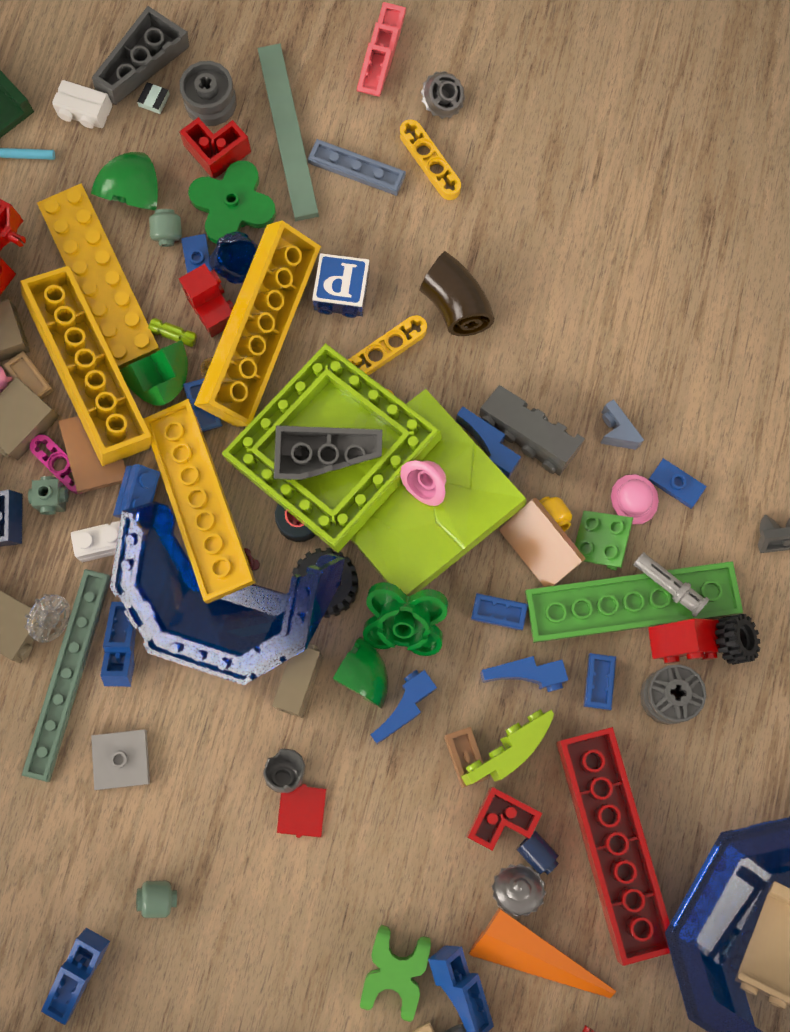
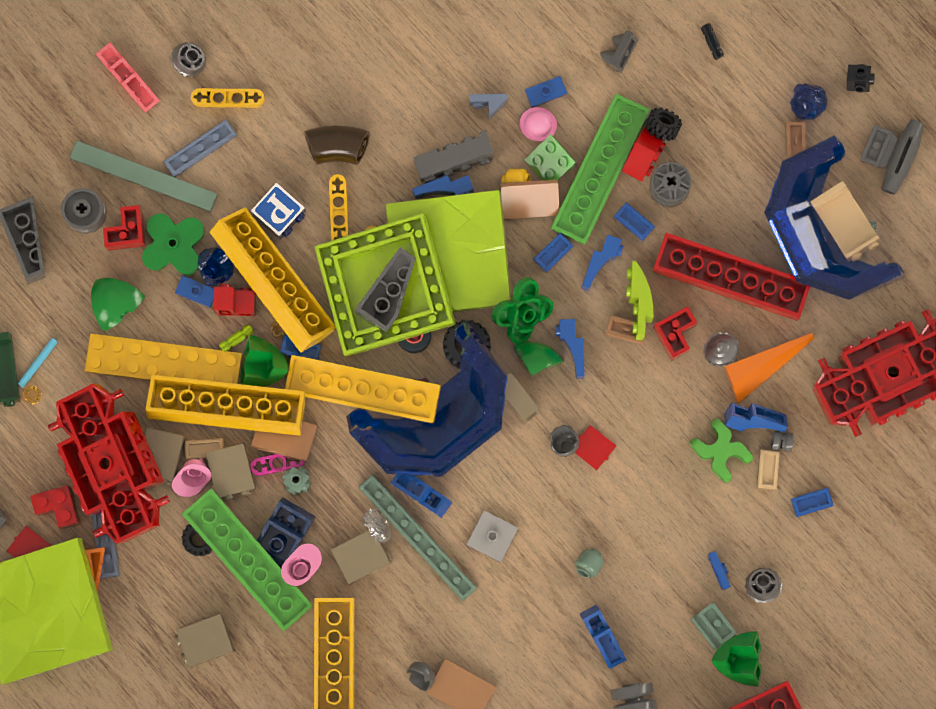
camera: 55 degrees left, 5 degrees up
(82, 104) = (33, 299): white brick -> none
(95, 541) = (348, 465): white brick -> none
(136, 488) = (331, 424): blue brick -> none
(153, 98) = (58, 249): tile -> none
(165, 227) = (161, 298): sand green head -> none
(424, 481) = (449, 242): bright pink hat -> none
(538, 853) = (708, 324): dark blue brick -> none
(681, 592) = (613, 137): light grey pin -> none

